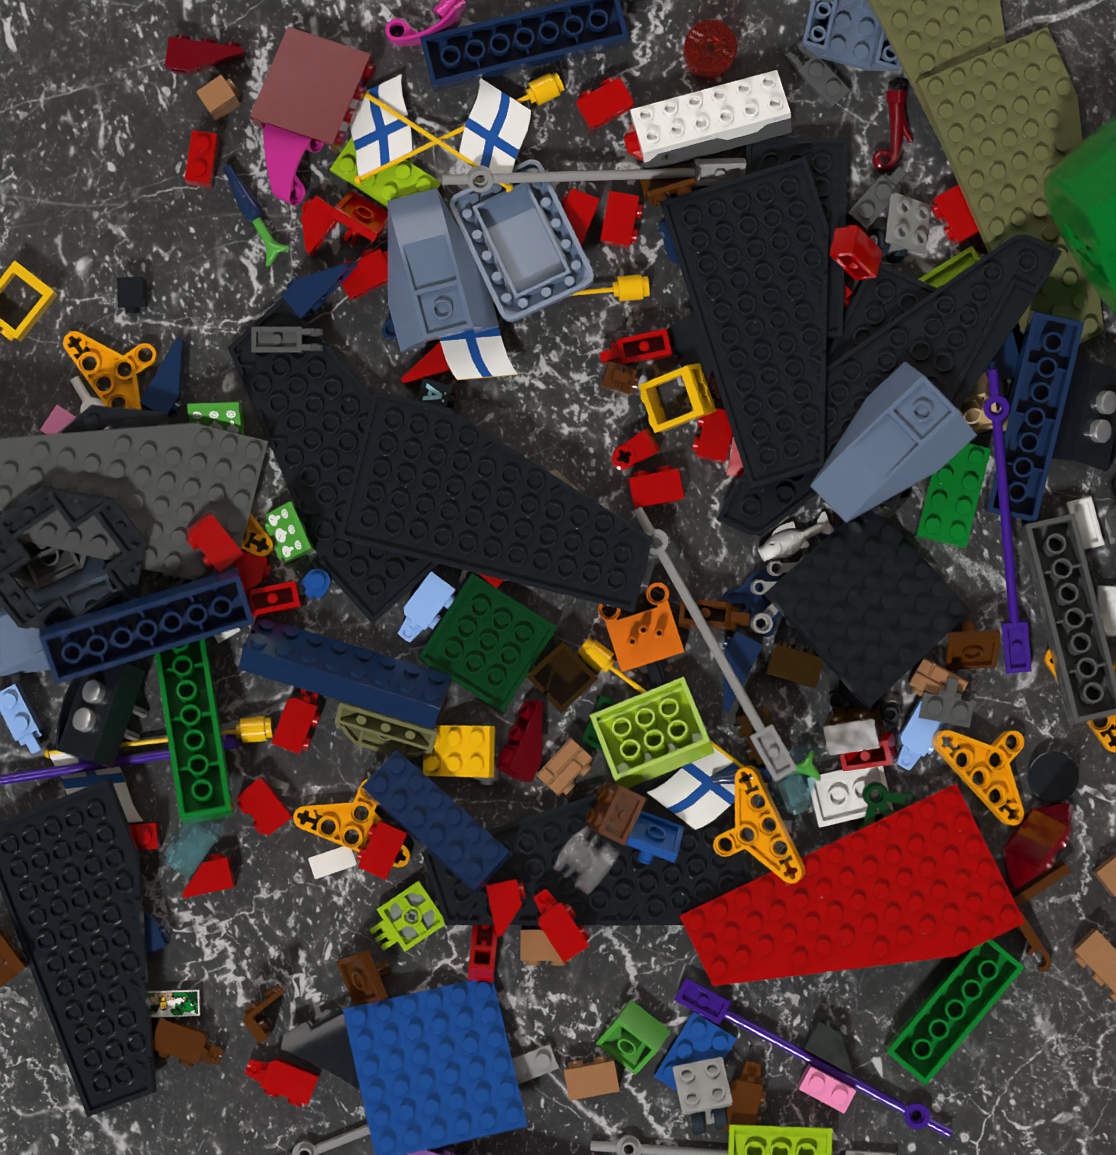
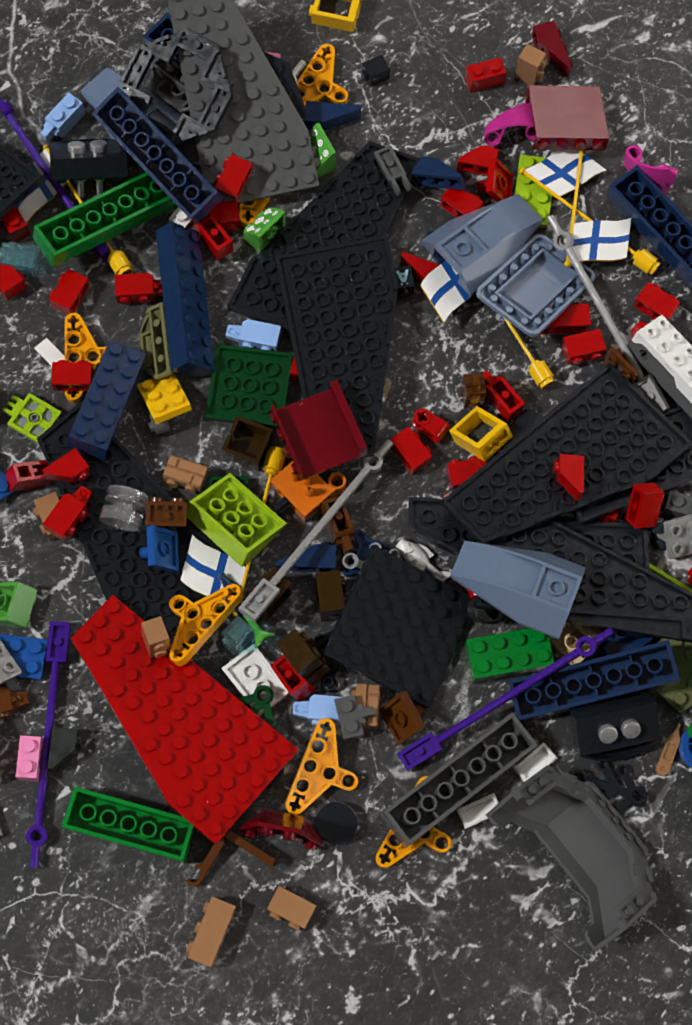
camera: 60 degrees right, 15 degrees down
(253, 212) = (466, 121): dark blue piece -> none
(316, 584) = (237, 261): blue plate -> none
(524, 746) = (185, 440): dark red slope -> none
(597, 591) = (319, 432): none -> dark red panel
(764, 890) = (155, 637): none -> medium nougat brick
(787, 322) = (570, 474): none -> red slope

